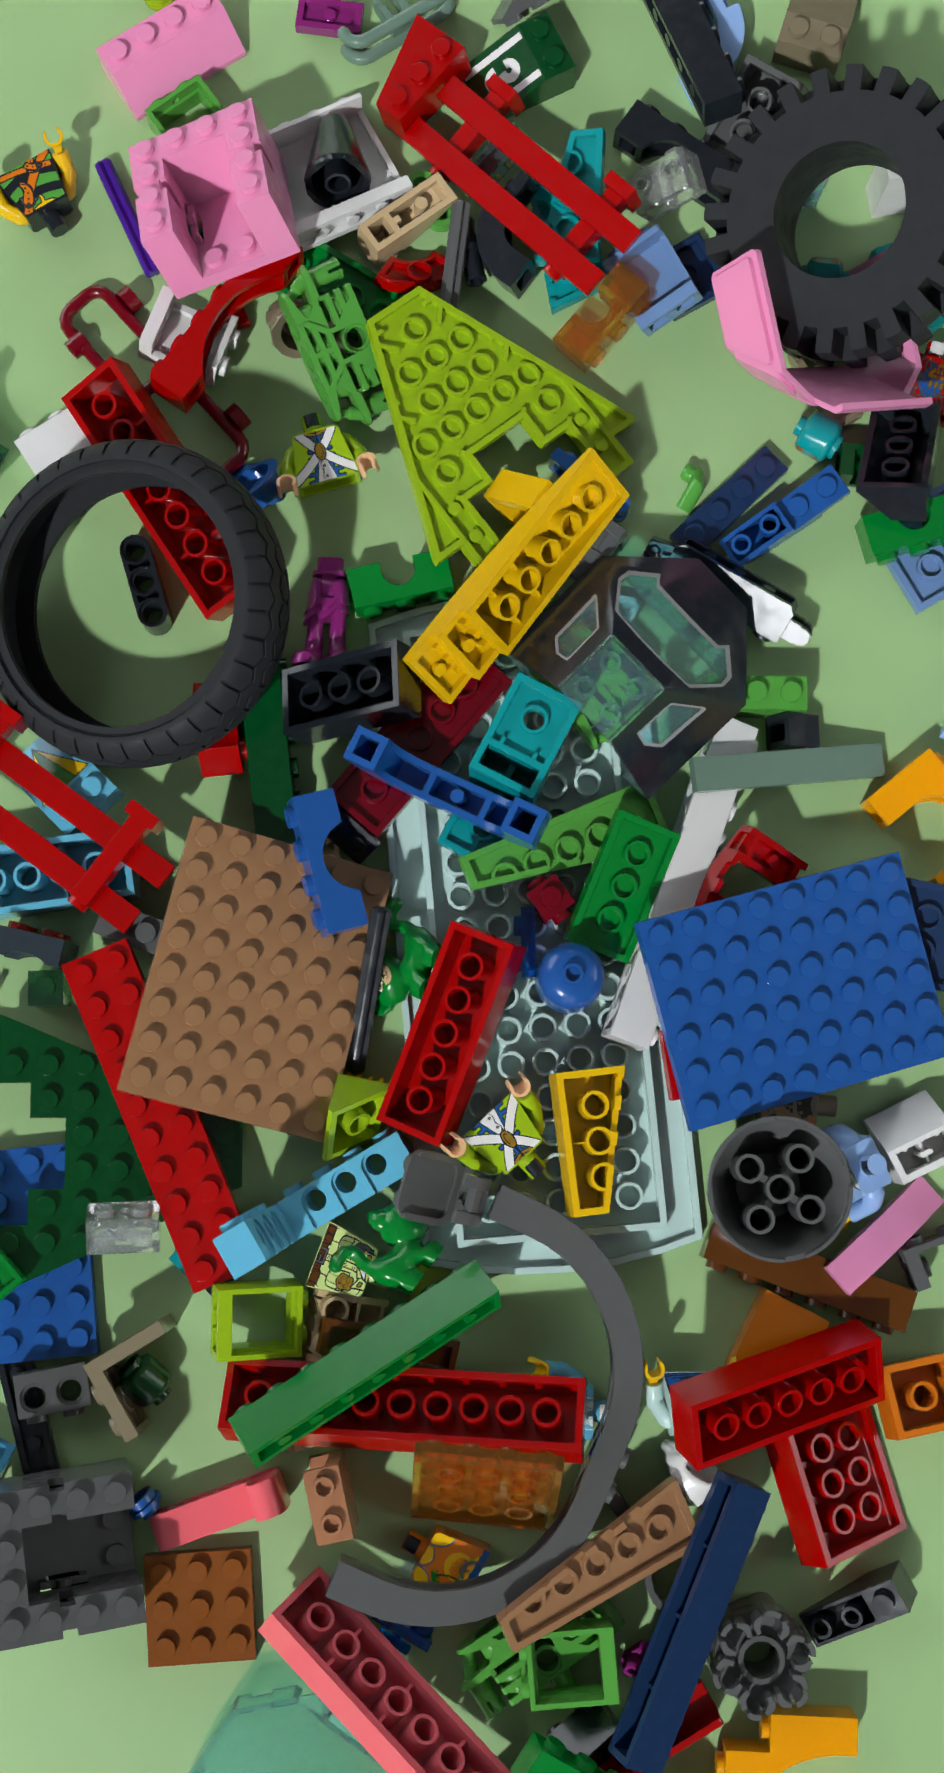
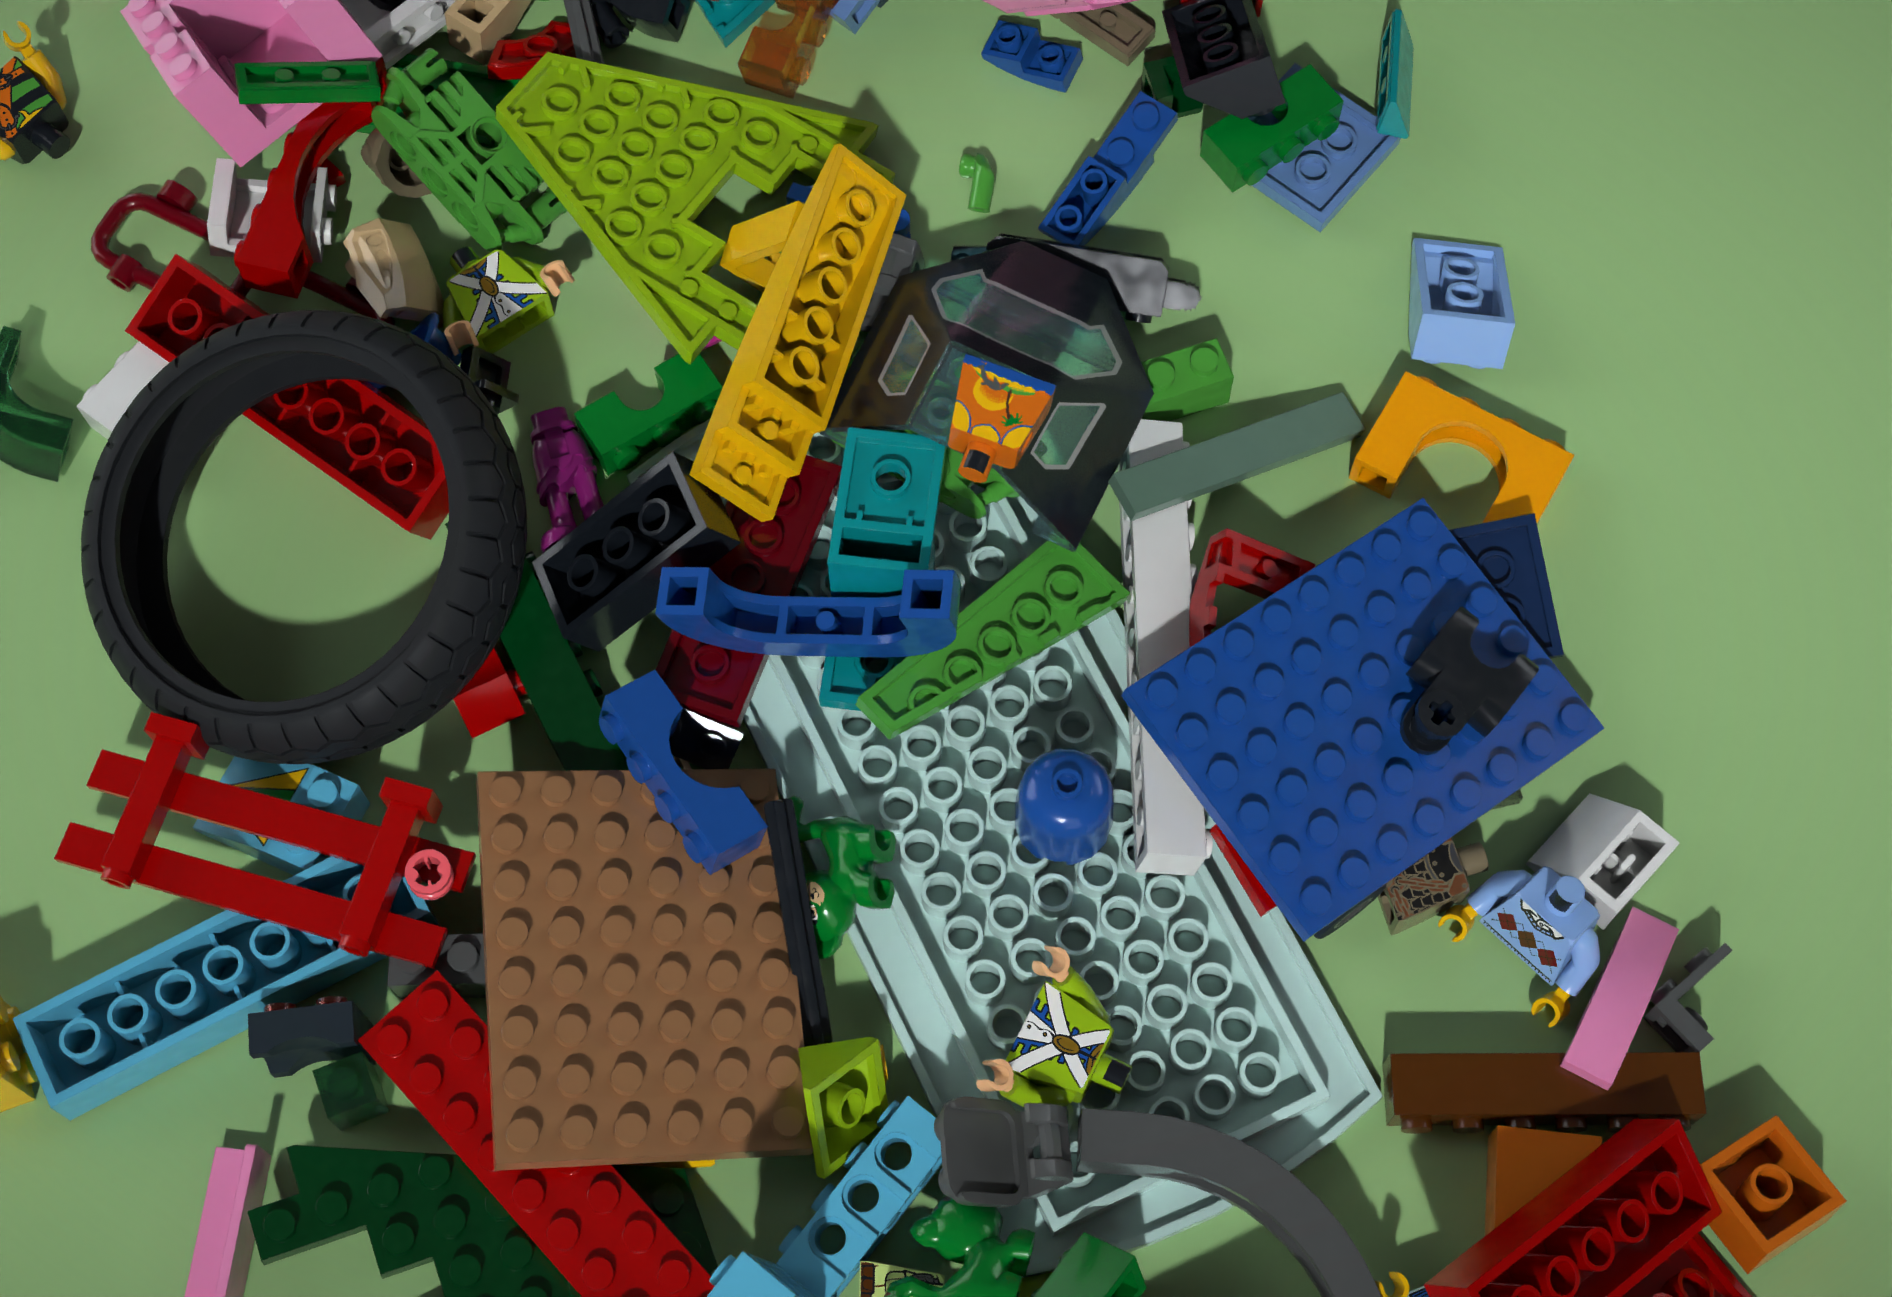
camera: 20 degrees left, 15 degrees down
(125, 213) = (144, 108): dark purple axle -> none
(129, 872) = (432, 891): none -> coral bush
(139, 571) = (306, 507): black beam -> none
(239, 259) = (307, 82): none -> green tile
(258, 417) = (393, 270): none -> tan slope
(294, 521) = (491, 377): none -> black bracket
(451, 1033) = (933, 933): red brick -> none
(525, 928) = (996, 805): clear blue plate -> none
(550, 899) = (998, 718): dark red brick -> none
(586, 1134) = (1169, 1002): yellow wedge -> none
(617, 708) = (995, 416): none -> torso
(621, 885) = (1086, 663): green plate -> none
(732, 499) = (1036, 175): dark blue plate -> none
(767, 404) = (1025, 55): none -> blue slope
(779, 1189) = (1457, 967): dark grey cone -> none
(792, 731) = (1223, 411): black brick -> none
(818, 436) = (1111, 70): teal head -> none
(861, 1000) = (1459, 688): none -> black piece

